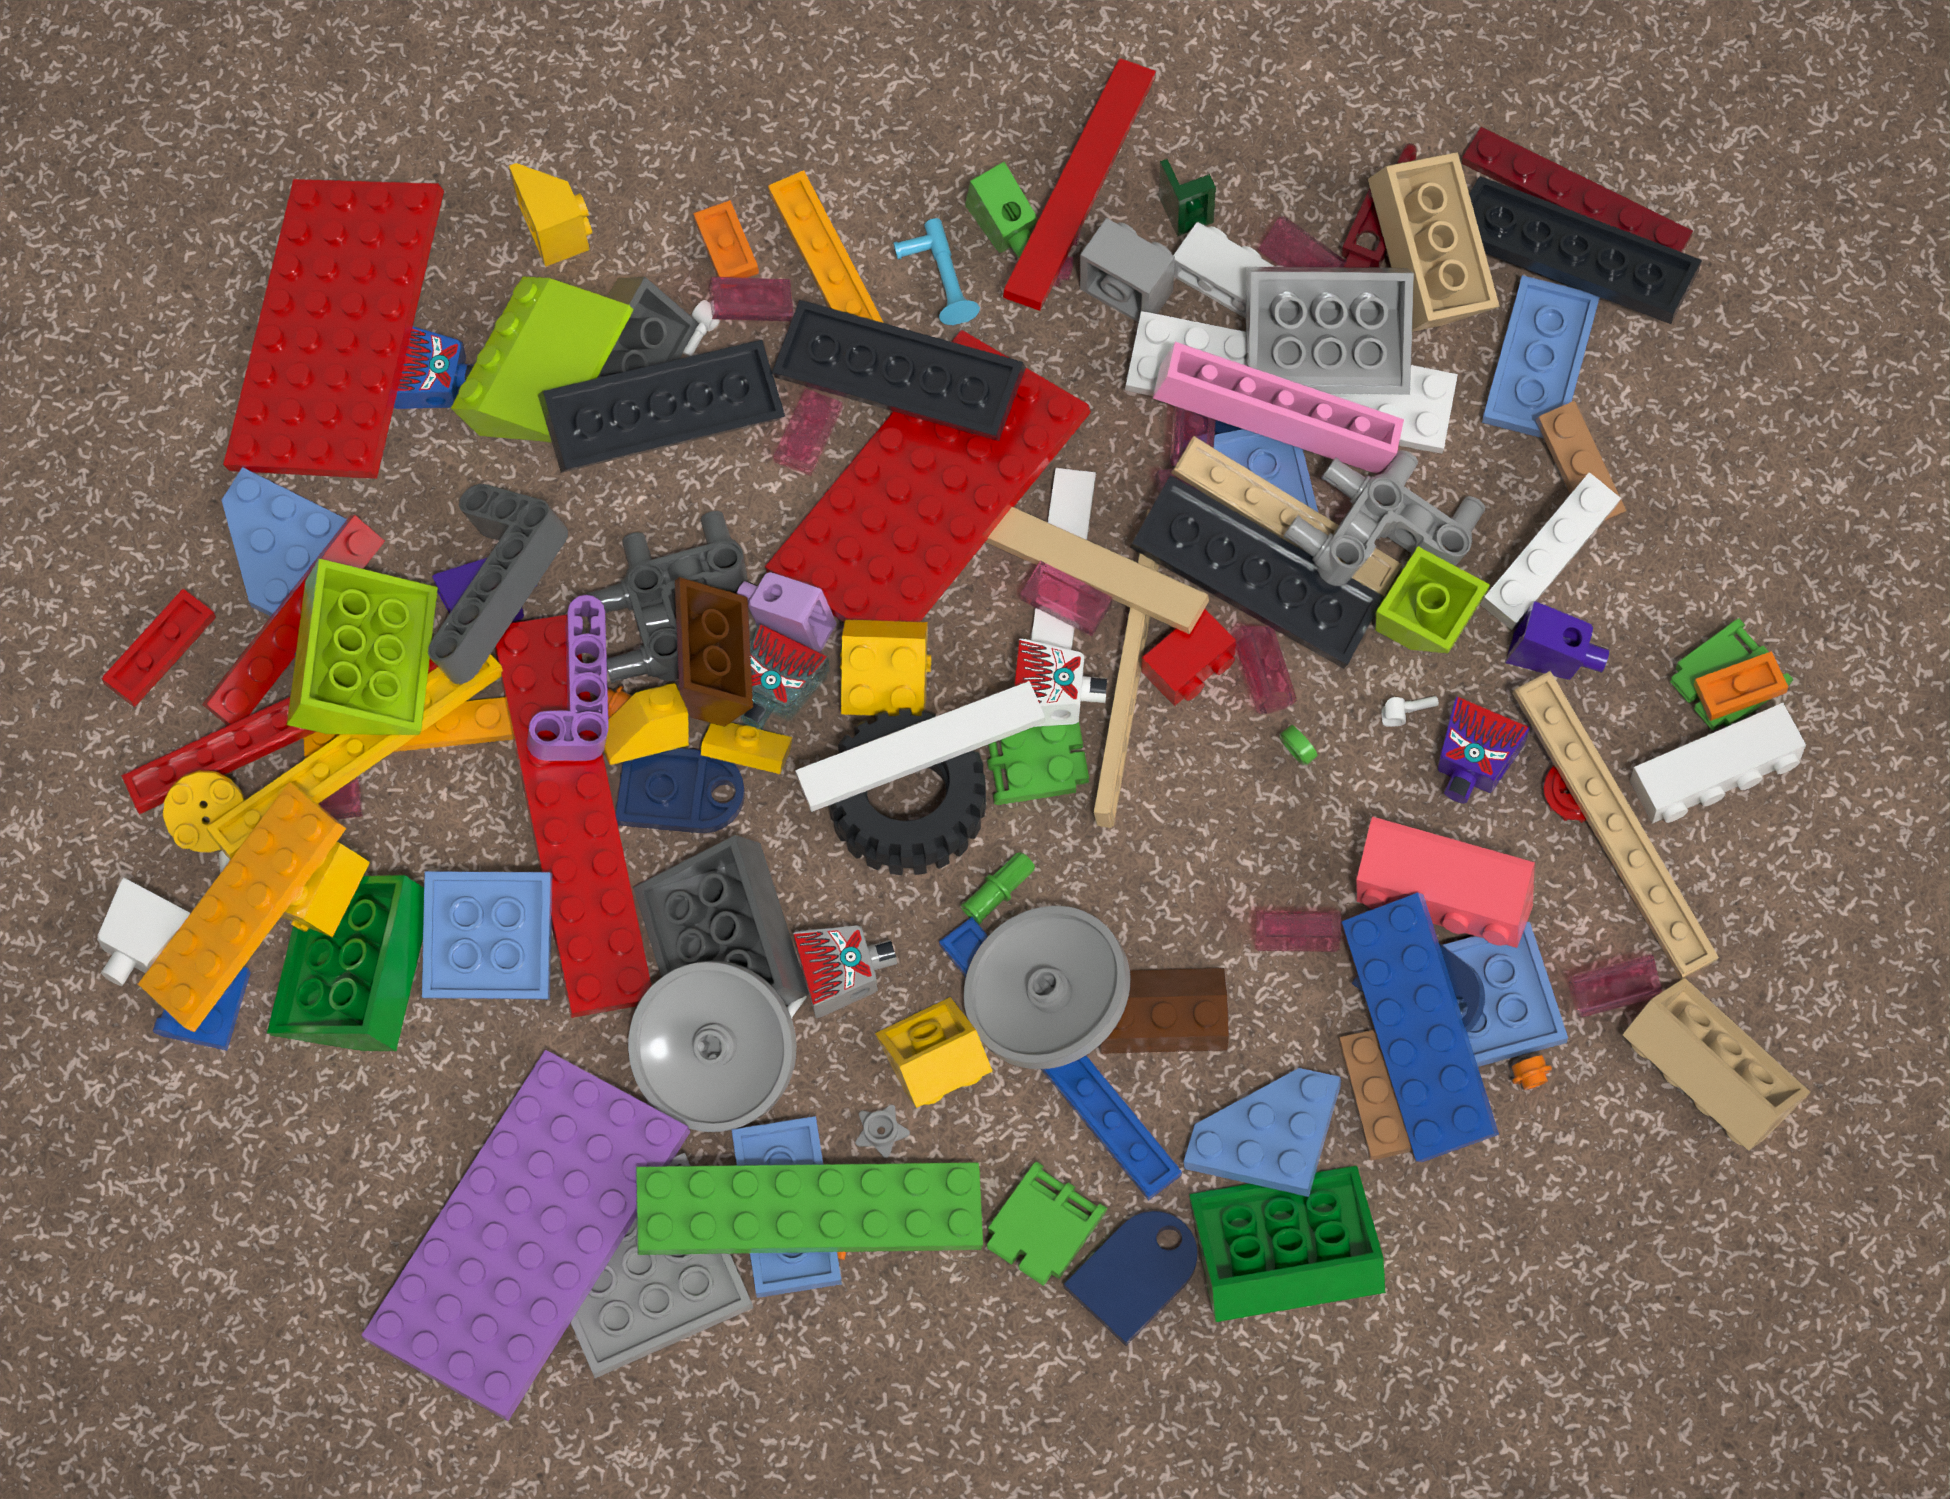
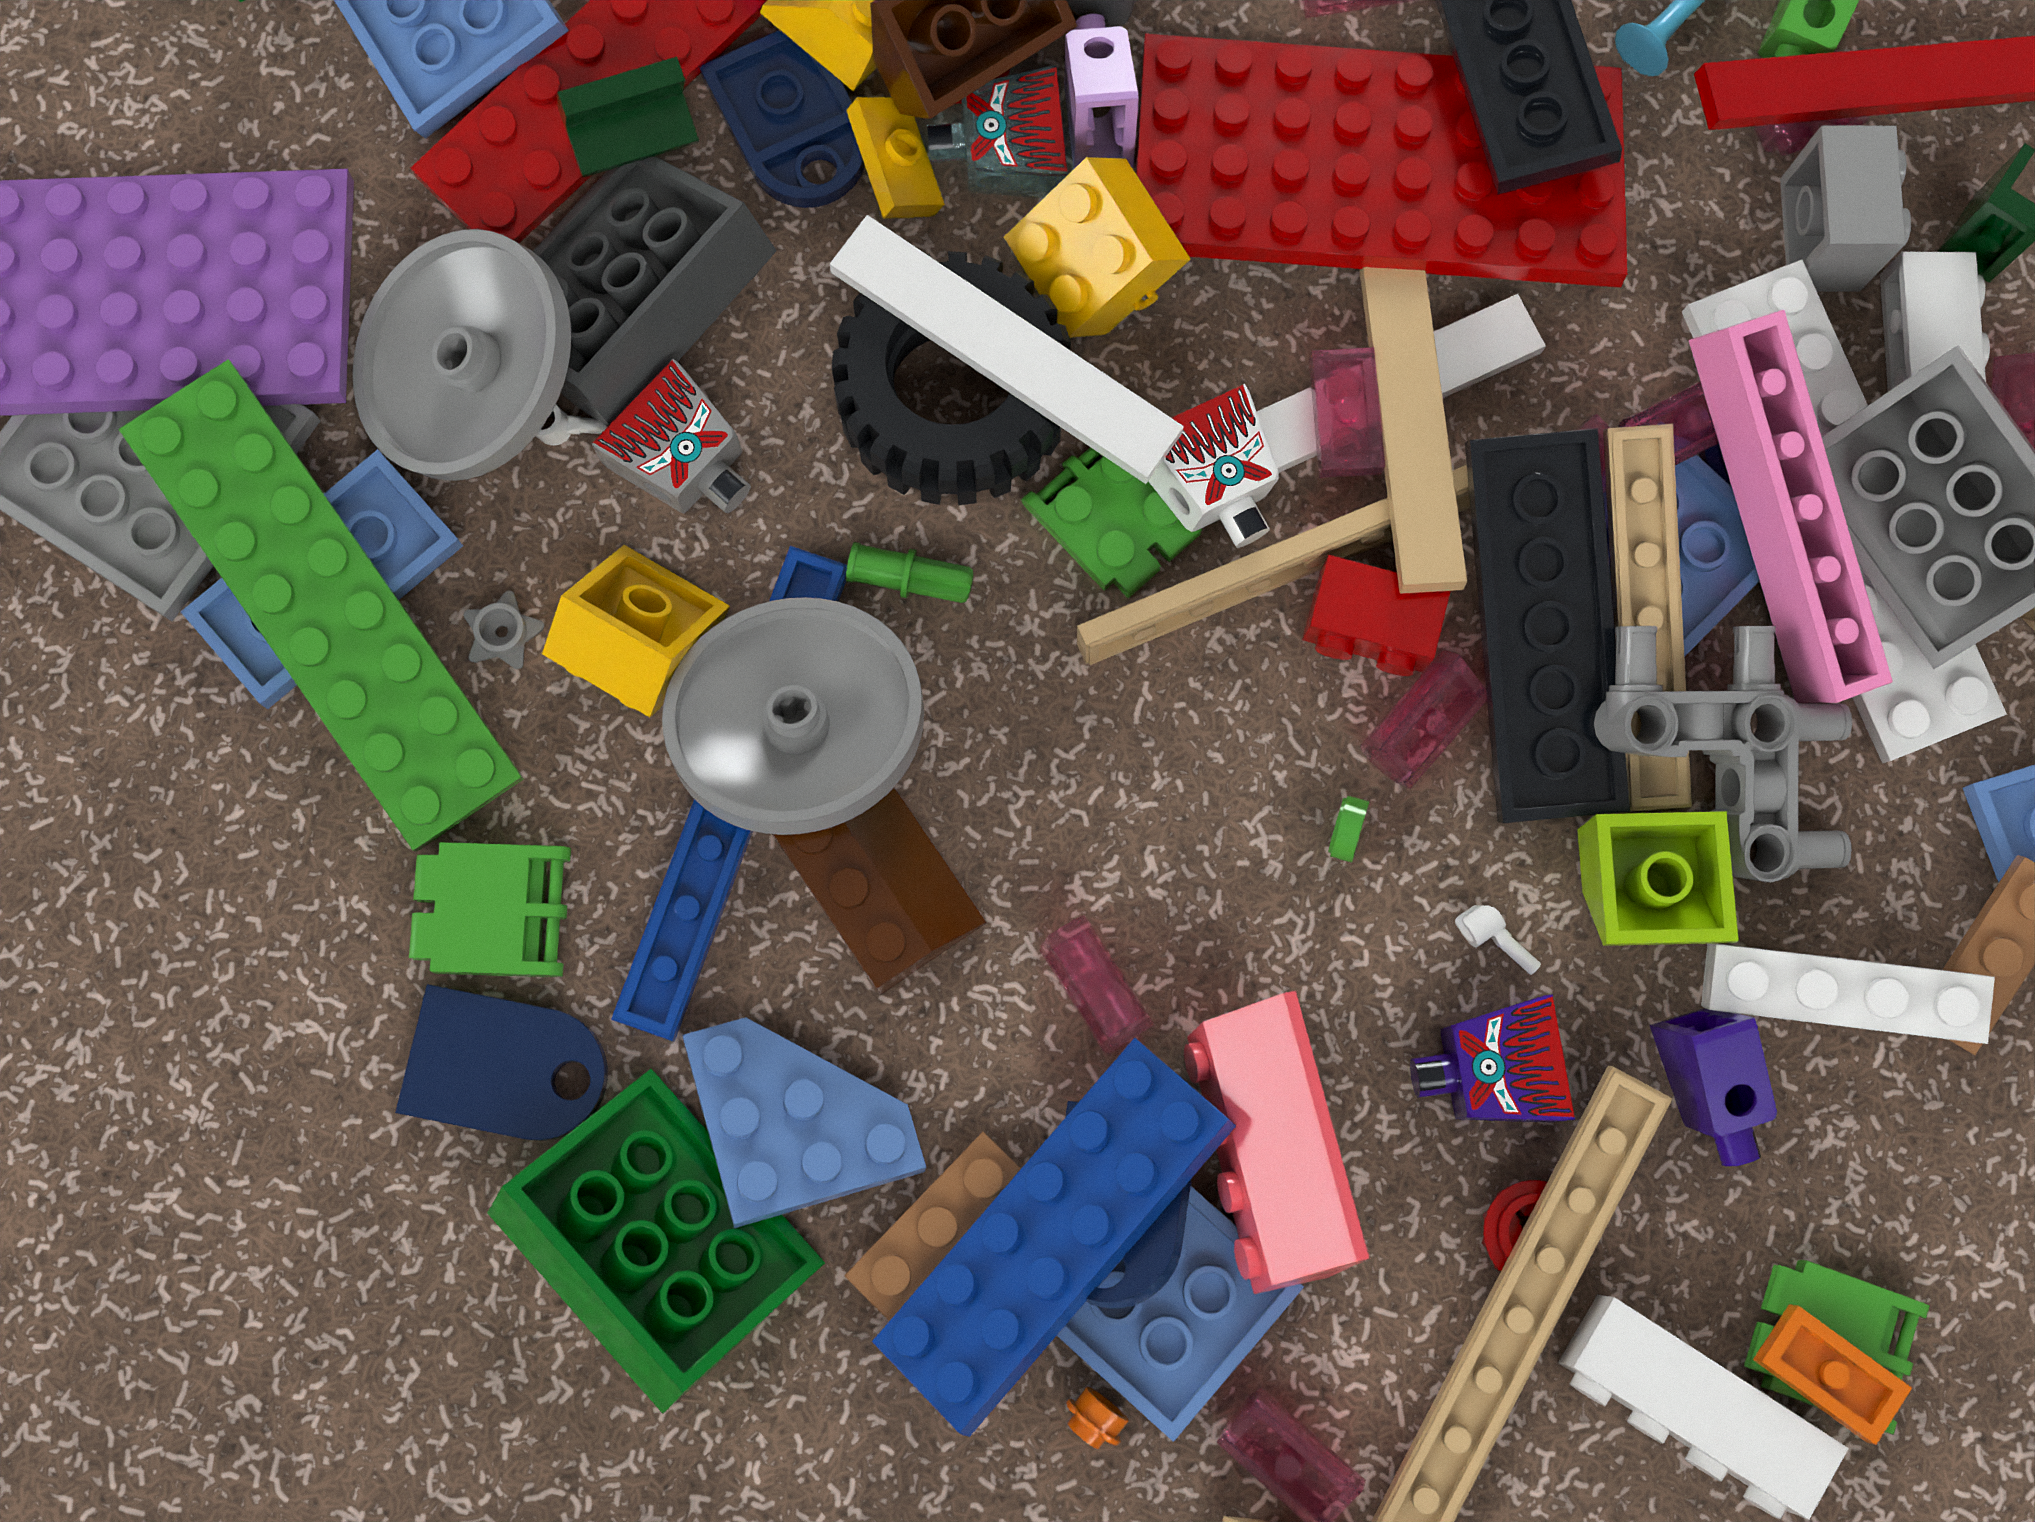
camera: 50 degrees right, 10 degrees up
(629, 873) = (627, 117): none -> dark green panel

